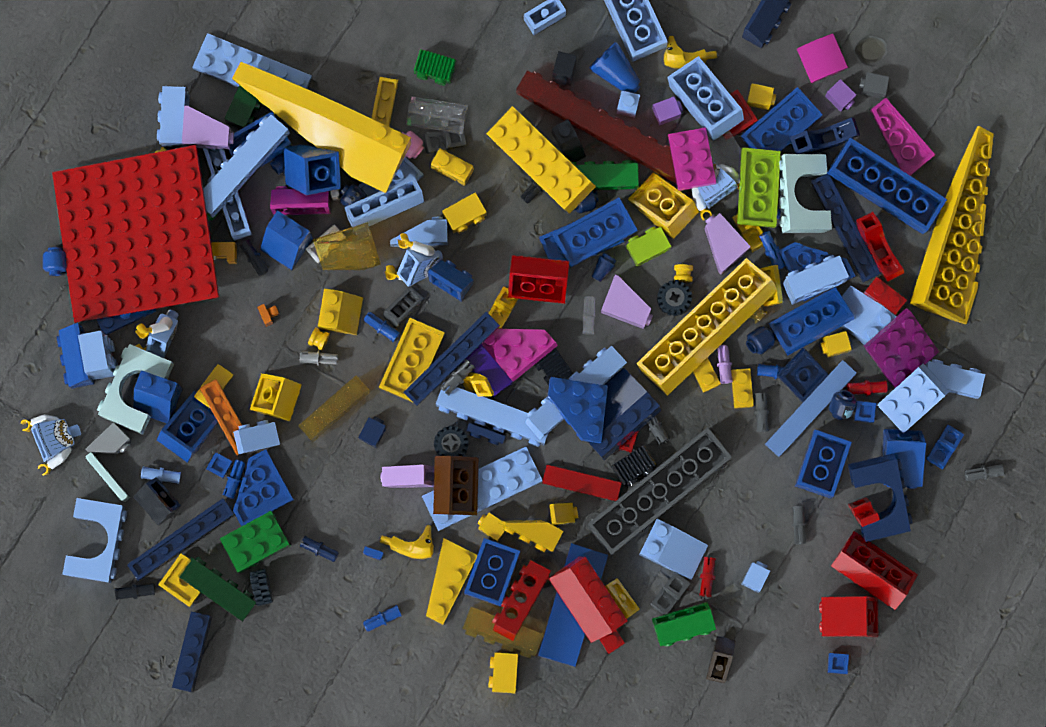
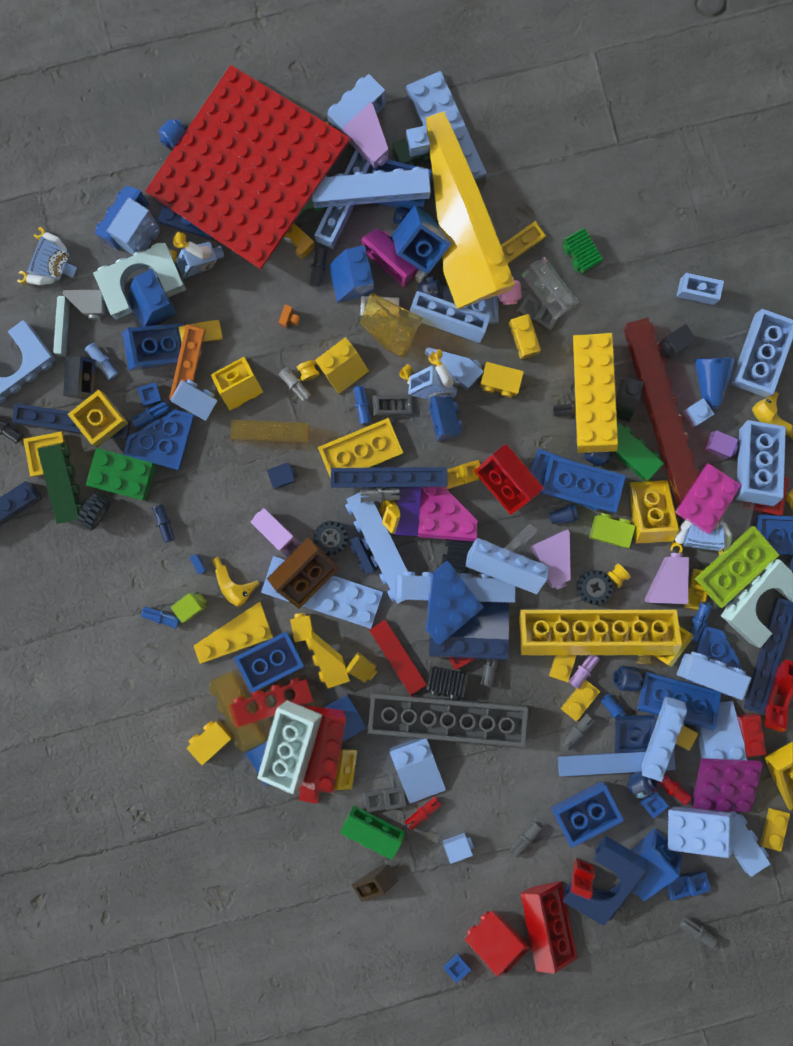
camera: 35 degrees right, 5 degrees up
(201, 515) = (97, 418): none -> yellow brick
(242, 100) = (417, 141): none -> light blue brick
(397, 587) = (189, 606): none -> lime brick
(565, 615) = (289, 746): none -> light aqua brick
(596, 341) = (507, 566): none -> light blue brick
(823, 357) = (663, 738): none -> light blue brick
(968, 347) = (775, 829): none -> yellow plate

